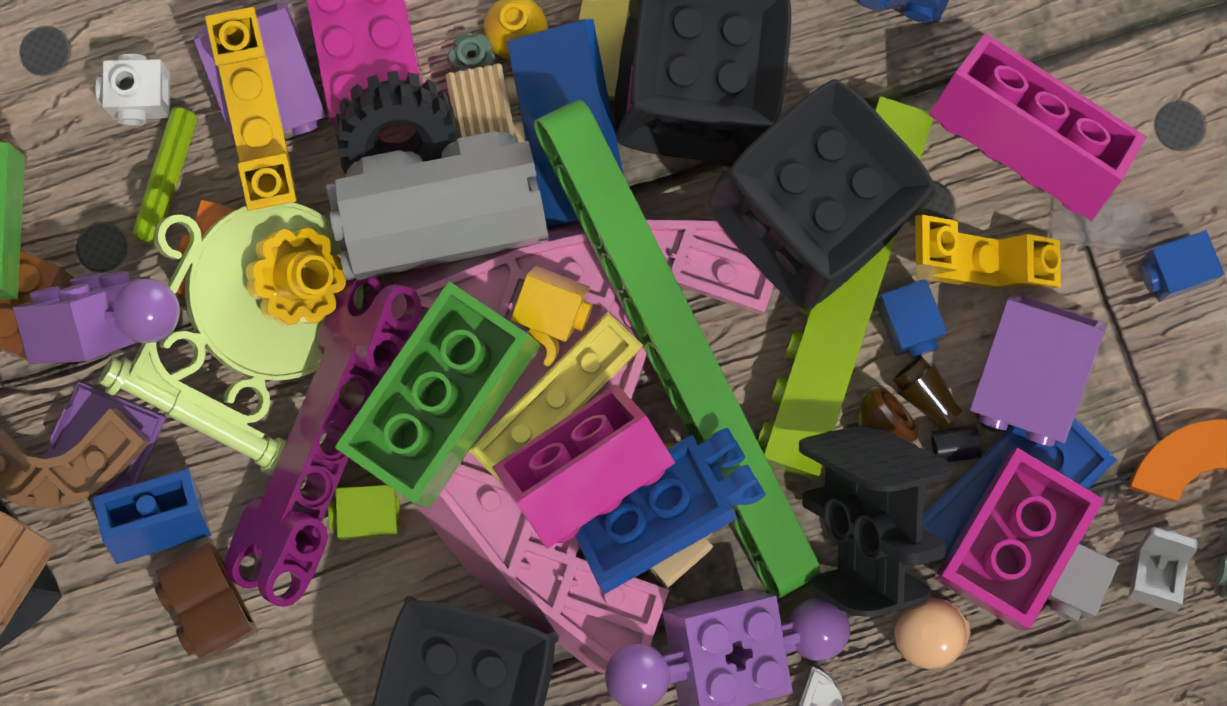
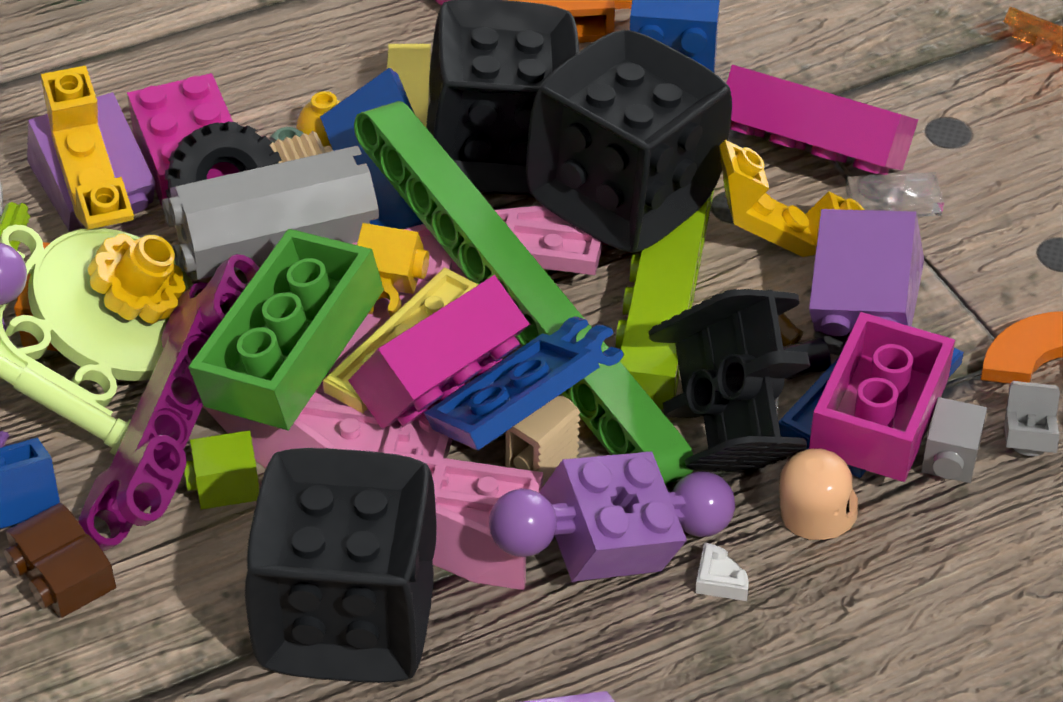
camera: 10 degrees left, 35 degrees down
(912, 319) = (735, 264): blue brick -> none
(1181, 266) = (980, 209): blue brick -> none

